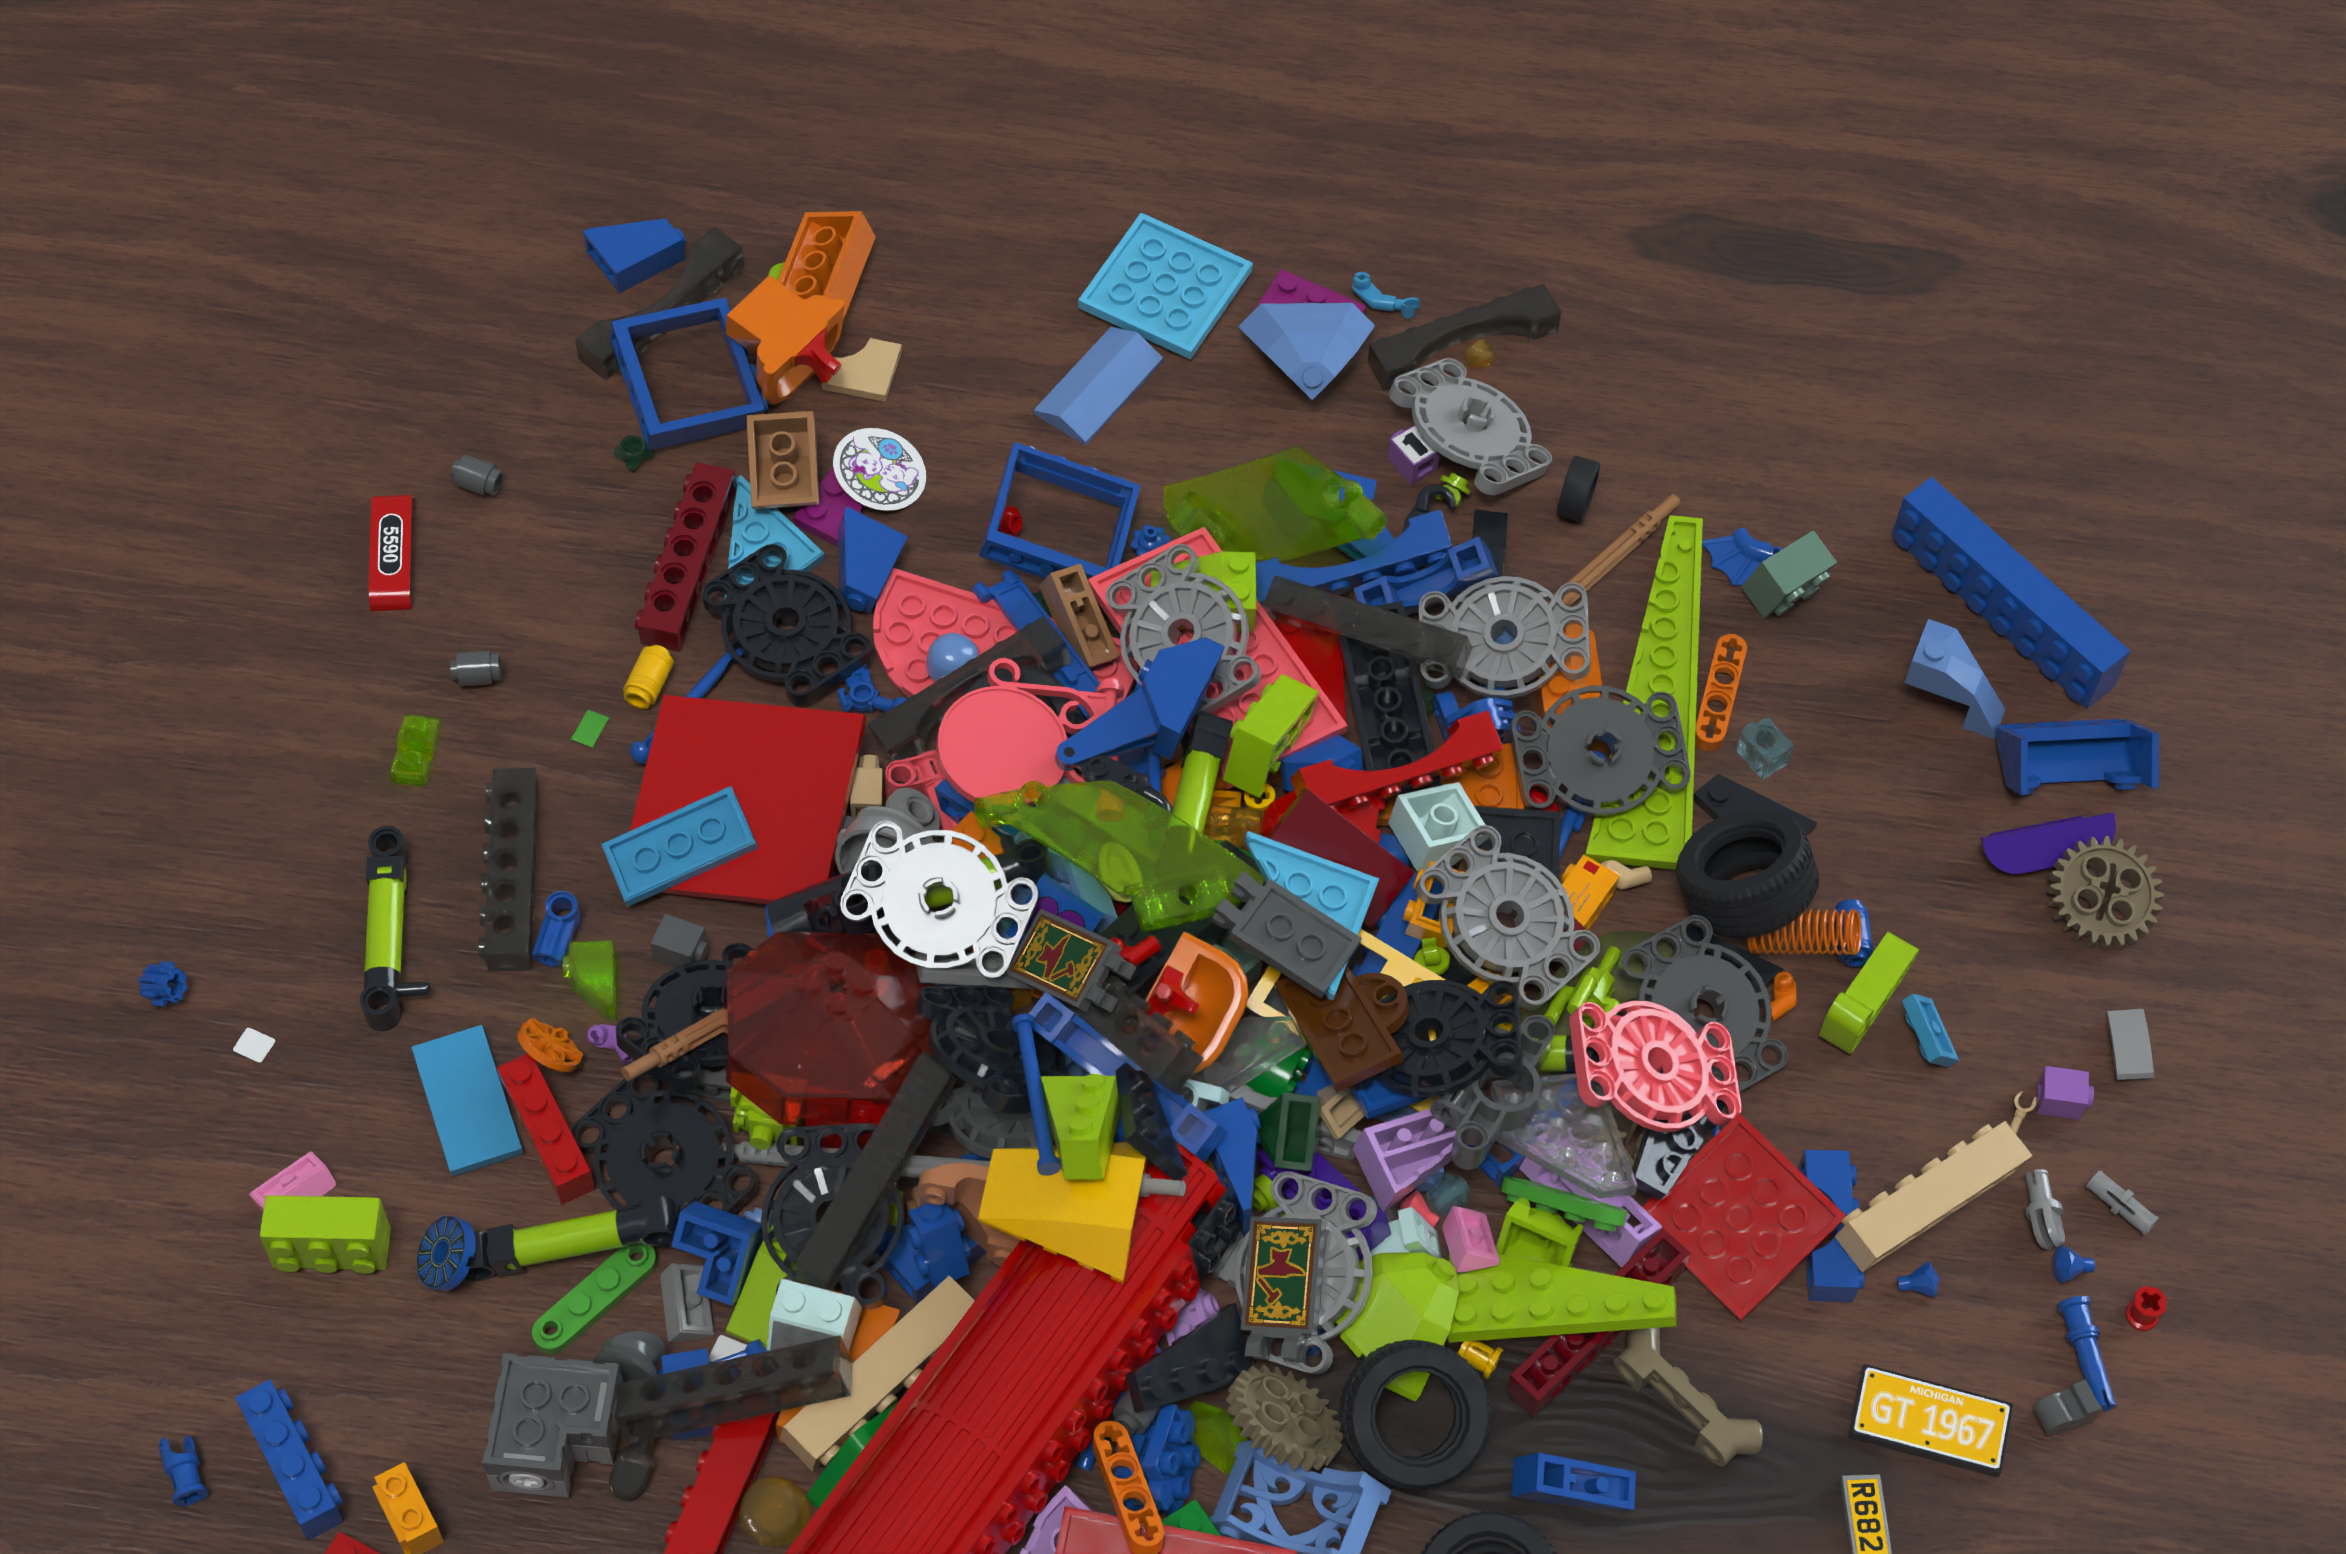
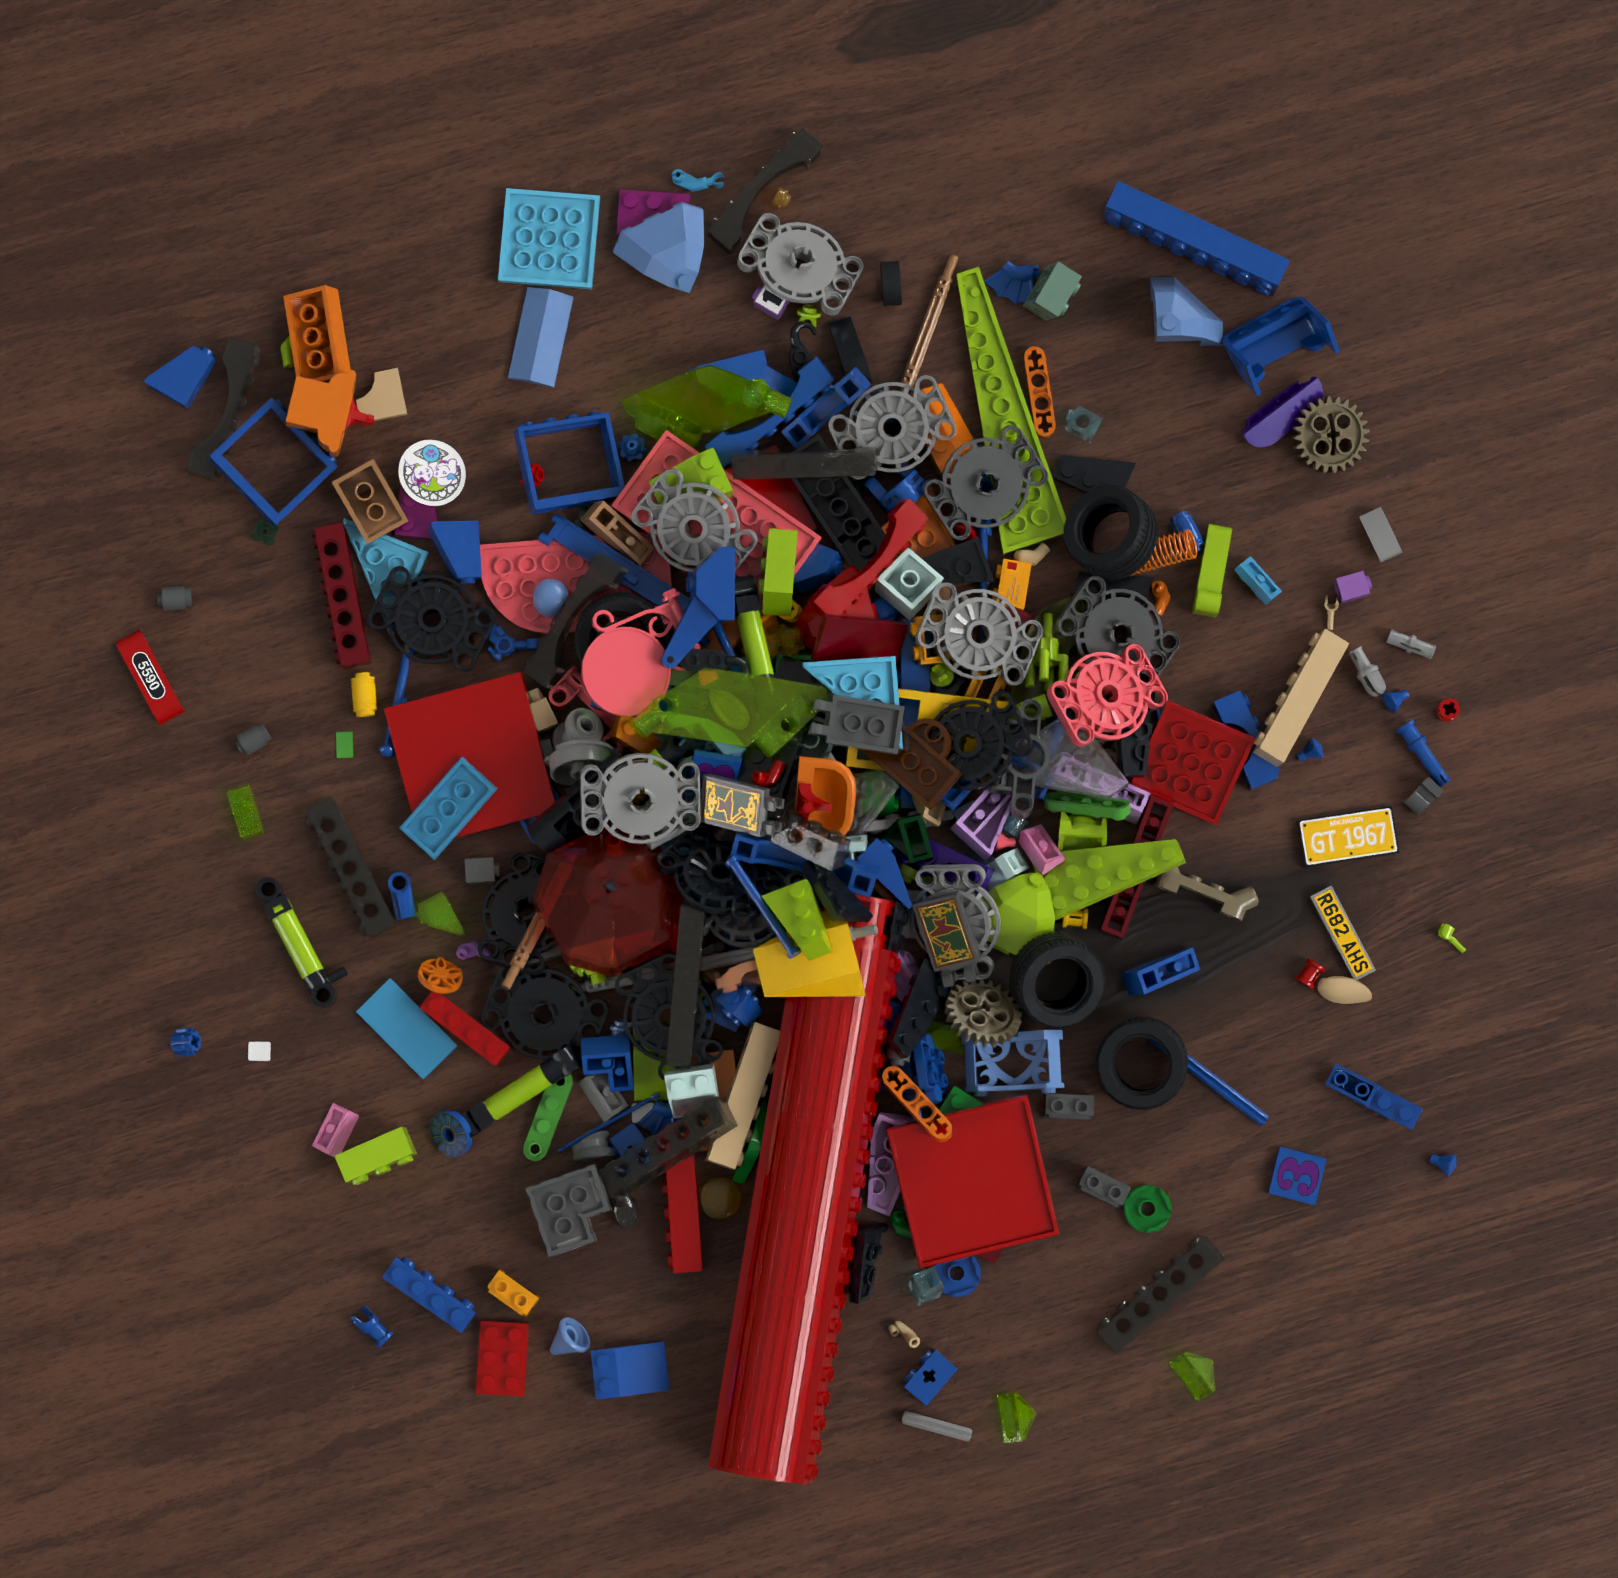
camera: 20 degrees left, 25 degrees up
(696, 1340) = (607, 1123): none -> blue piece

